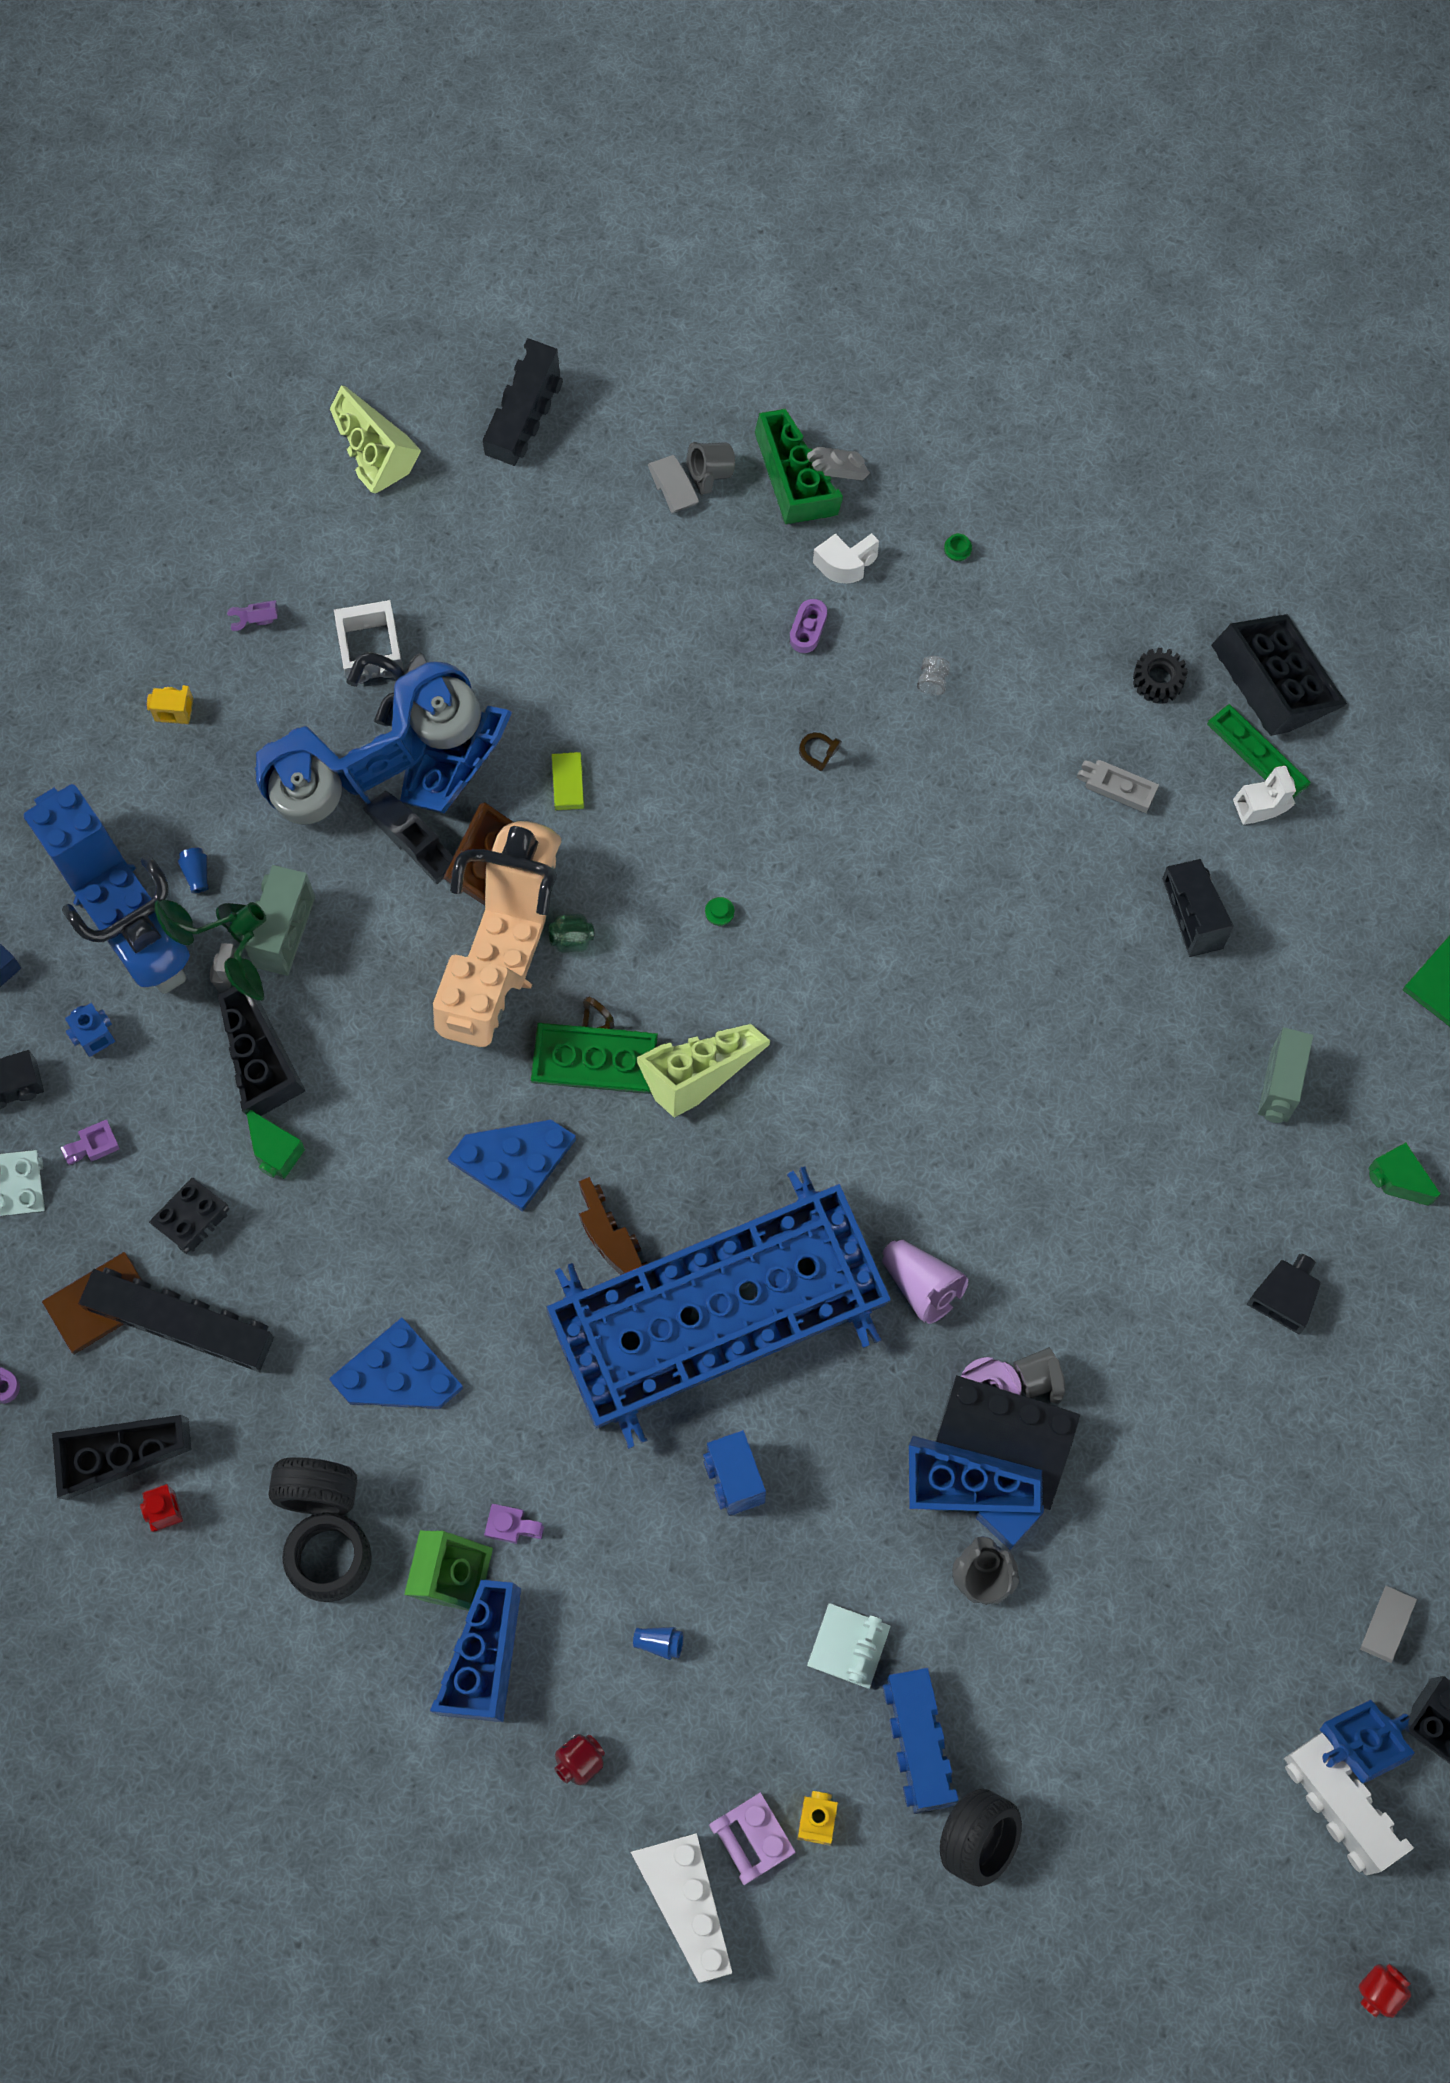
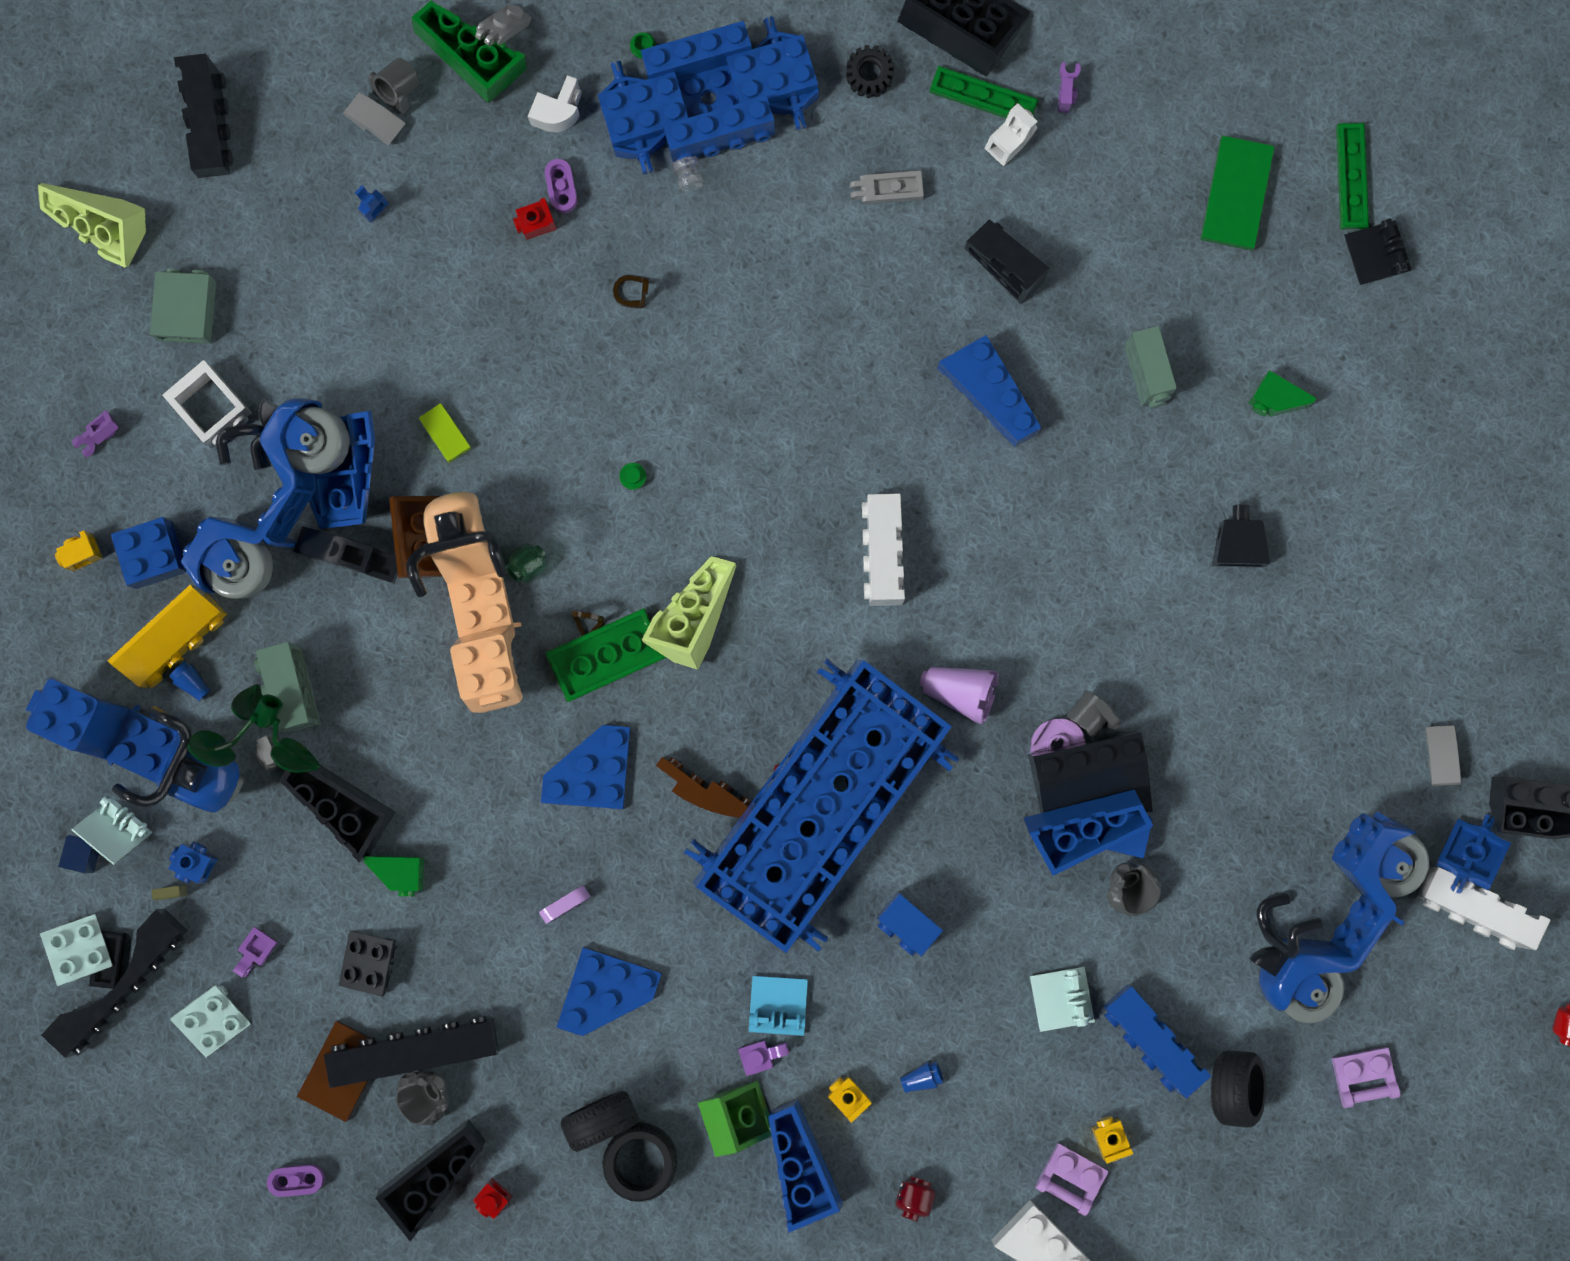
camera: 25 degrees left, 15 degrees up
(38, 958) = (112, 830): none -> light aqua hinge
(51, 1045) = (169, 892): none -> olive tile
(158, 1367) = (422, 1097): none -> dark grey hair
(201, 816) = (168, 637): none -> yellow slope
(232, 738) = (148, 553): none -> blue brick
(400, 550) = (183, 306): none -> sand green brick
(410, 1265) = (564, 904): none -> lavender beam
(557, 1485) = (778, 1005): none -> medium azure hinge
(573, 1628) = (859, 1103): none -> yellow brick
(626, 551) = (371, 204): none -> blue plate
(766, 641) = (541, 225): none -> red brick
(921, 1106) = (884, 550): none -> white wedge
(985, 584) = (747, 85): none -> blue piece
(1113, 1008) = (988, 385): none -> blue wedge
(1116, 1765) = (1304, 974): none -> blue piece
(1129, 1905) = (1361, 1068): none -> lavender plate
(1342, 791) = (1067, 93): none -> medium lavender plate

